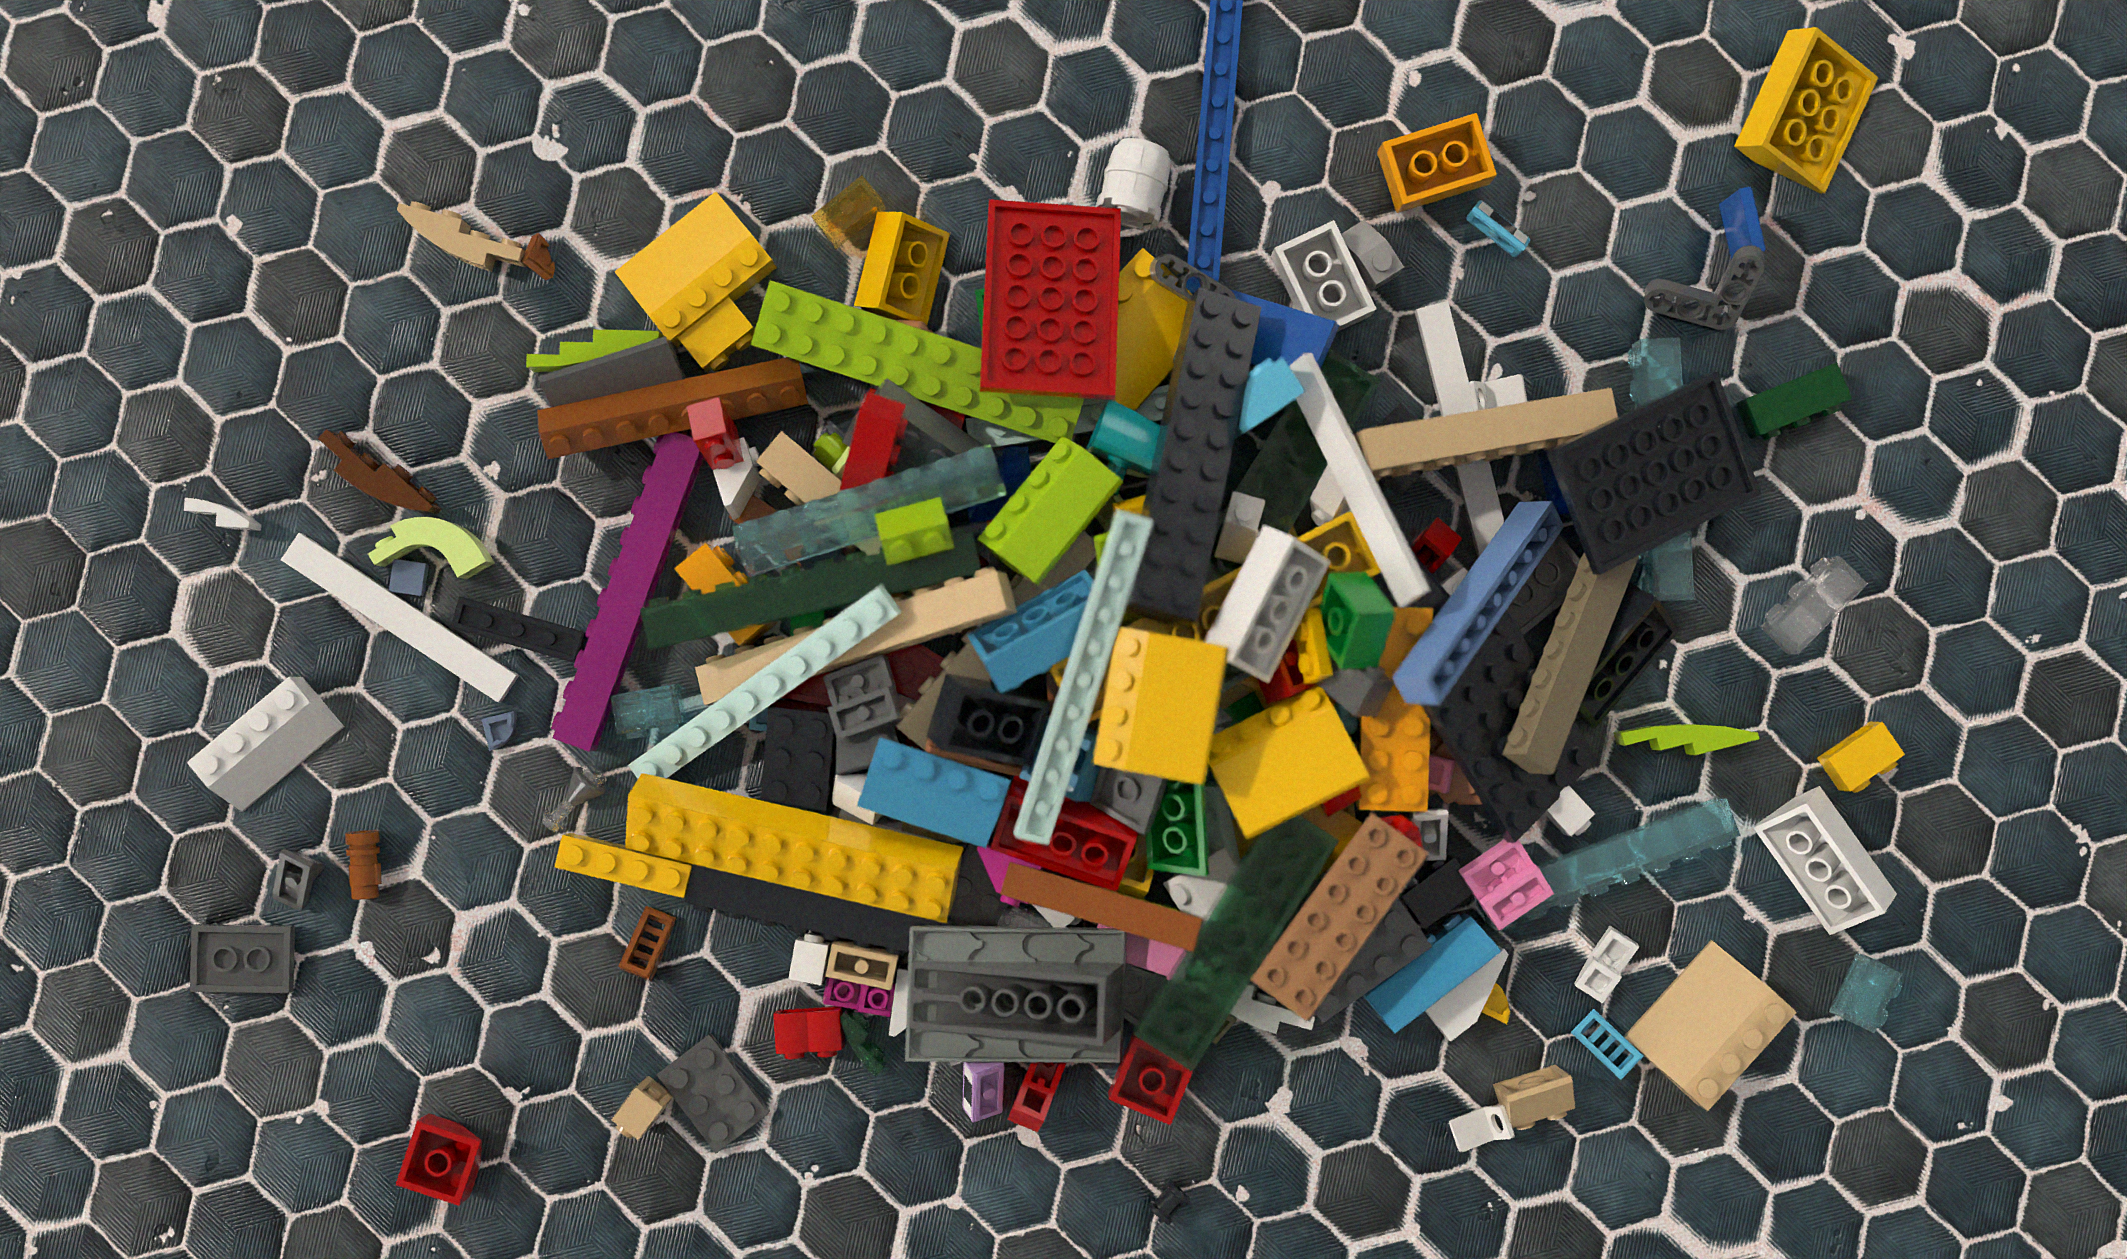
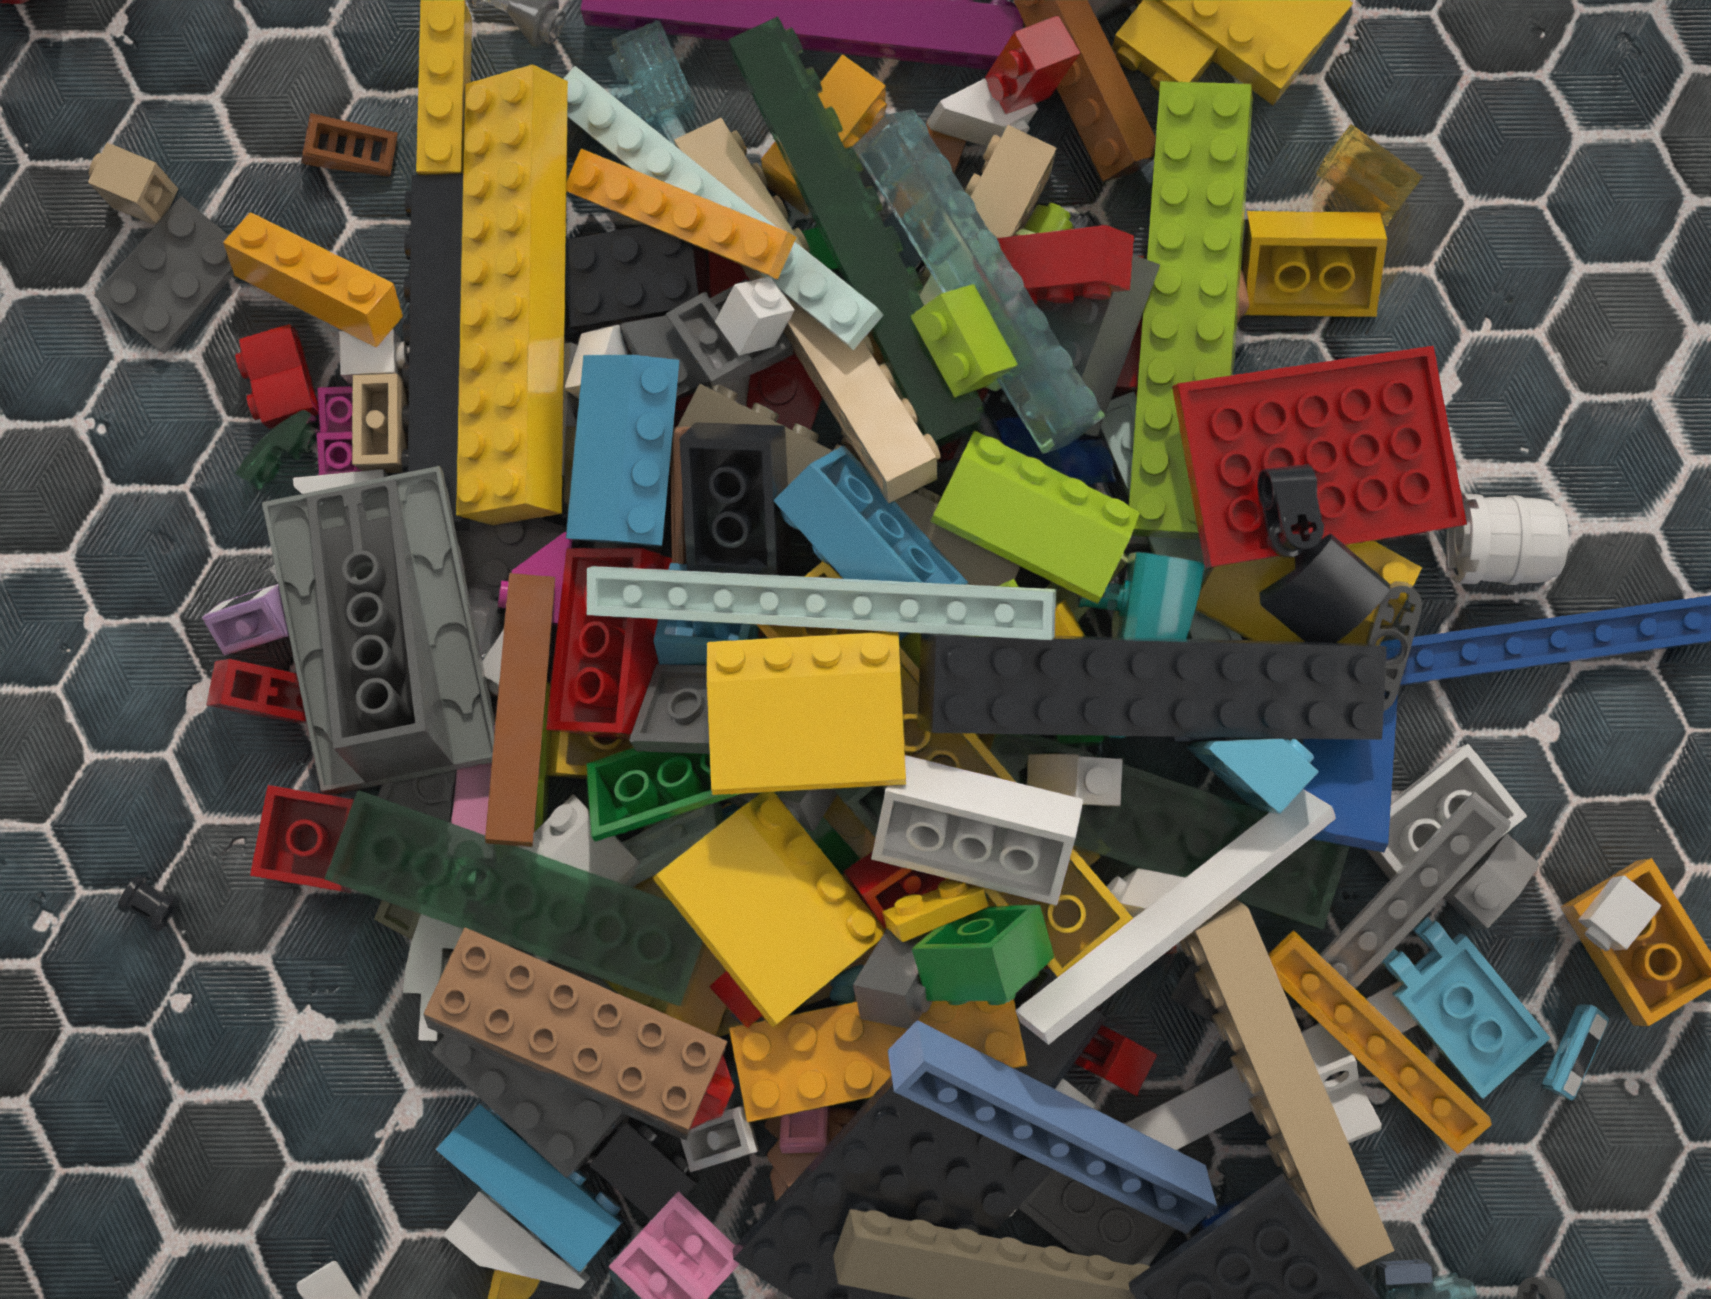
camera: 80 degrees right, 5 degrees down
(746, 990) = (313, 279): none -> light orange brick
(767, 713) = (680, 214): none -> light orange plate
(857, 676) = (754, 315): none -> white brick
(1083, 329) = (1288, 506): none -> black piece
(1149, 320) = (1325, 592): none -> black slope
(1376, 322) = (1416, 889): none -> light grey plate
(1418, 175) = (1618, 914): none -> white brick
(1453, 296) = (1465, 1008): none -> medium azure tile
(1463, 363) = (1377, 1043): none -> light orange plate
(1622, 383) = (1404, 1272): none -> sand blue tile

